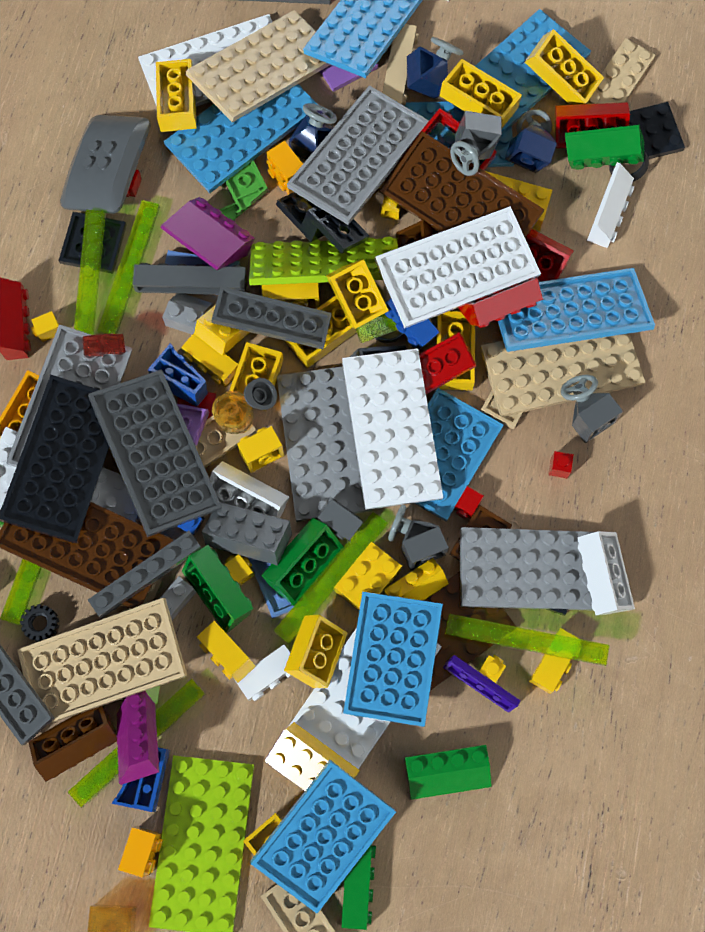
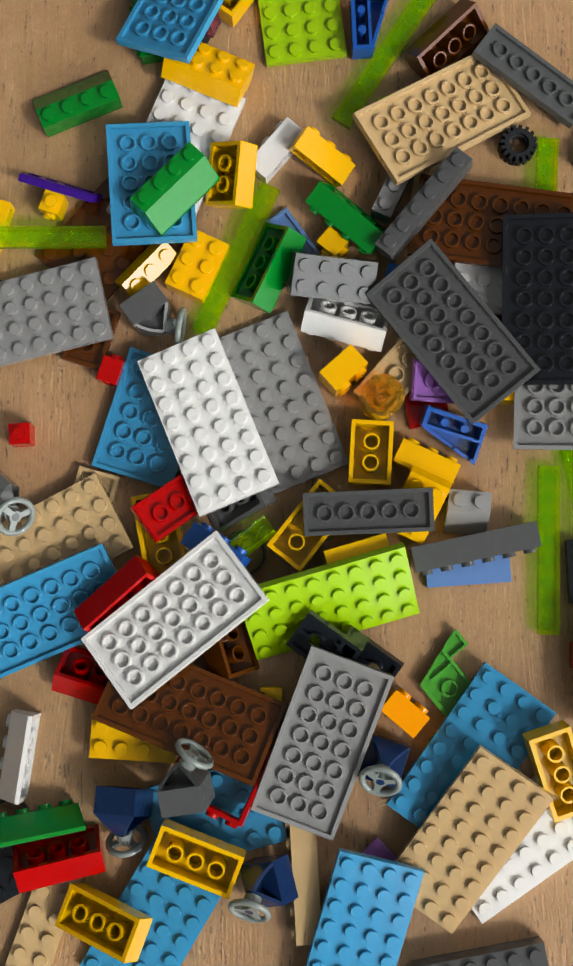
camera: 170 degrees right, 10 degrees up
(103, 344) = (544, 438): clear red slope -> none
(137, 738) = (383, 49): magenta slope -> none
(209, 233) = (470, 604): magenta slope -> none
(260, 394) = (356, 420): dark grey piece -> none
(339, 519) = (241, 318): dark grey brick -> none
(357, 293) = (280, 556): yellow slope -> none
(372, 640) = (174, 189): none -> slope

